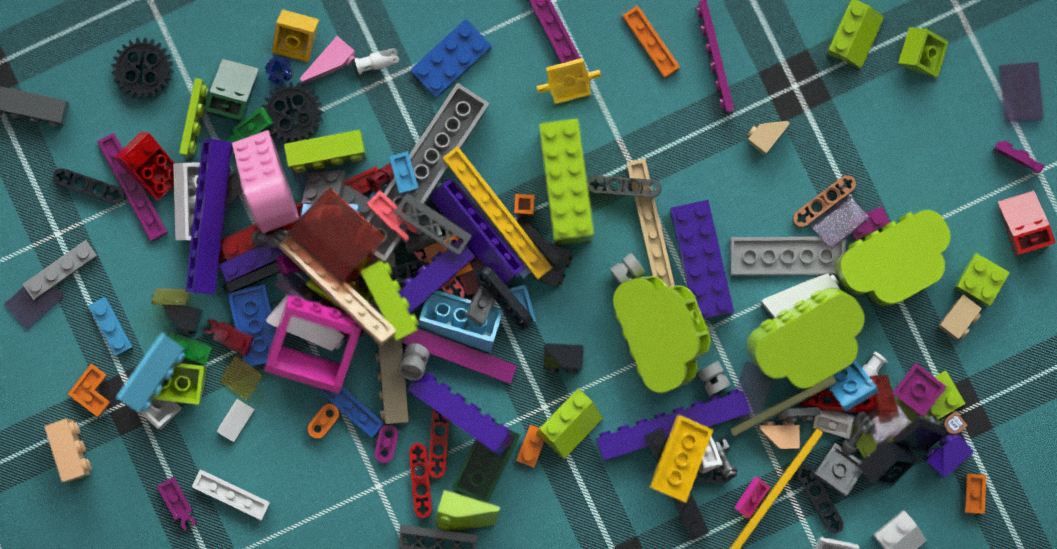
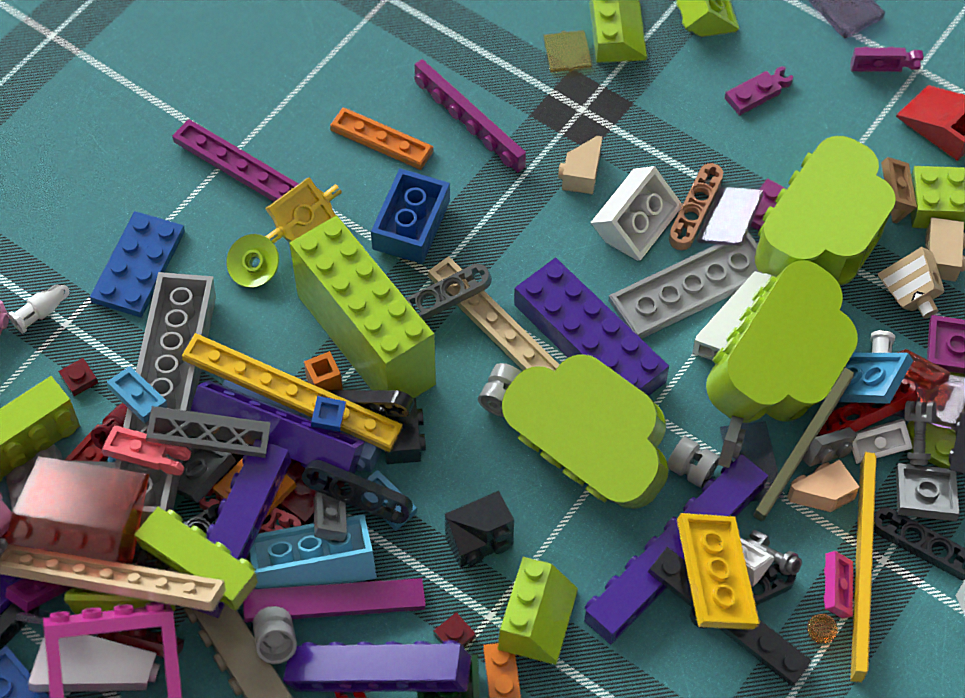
camera: 30 degrees left, 25 degrees down
(379, 123) = (78, 377): none -> dark red plate
(510, 242) = (328, 413): none -> blue plate
(514, 101) = (243, 254): none -> lime dish
(518, 408) = (455, 630): none -> dark red plate
(636, 117) = (410, 216): none -> blue brick
(727, 516) = (822, 628): none -> clear orange plate
(738, 385) = (732, 442): none -> dark grey plate
(782, 188) = (637, 212): none -> white slope
(811, 34) = (567, 51): none -> clear yellow piece
(918, 133) = (757, 90): none -> magenta plate
(922, 333) = (915, 282): none -> tan torso
(957, 261) = (899, 178): none -> medium nougat panel

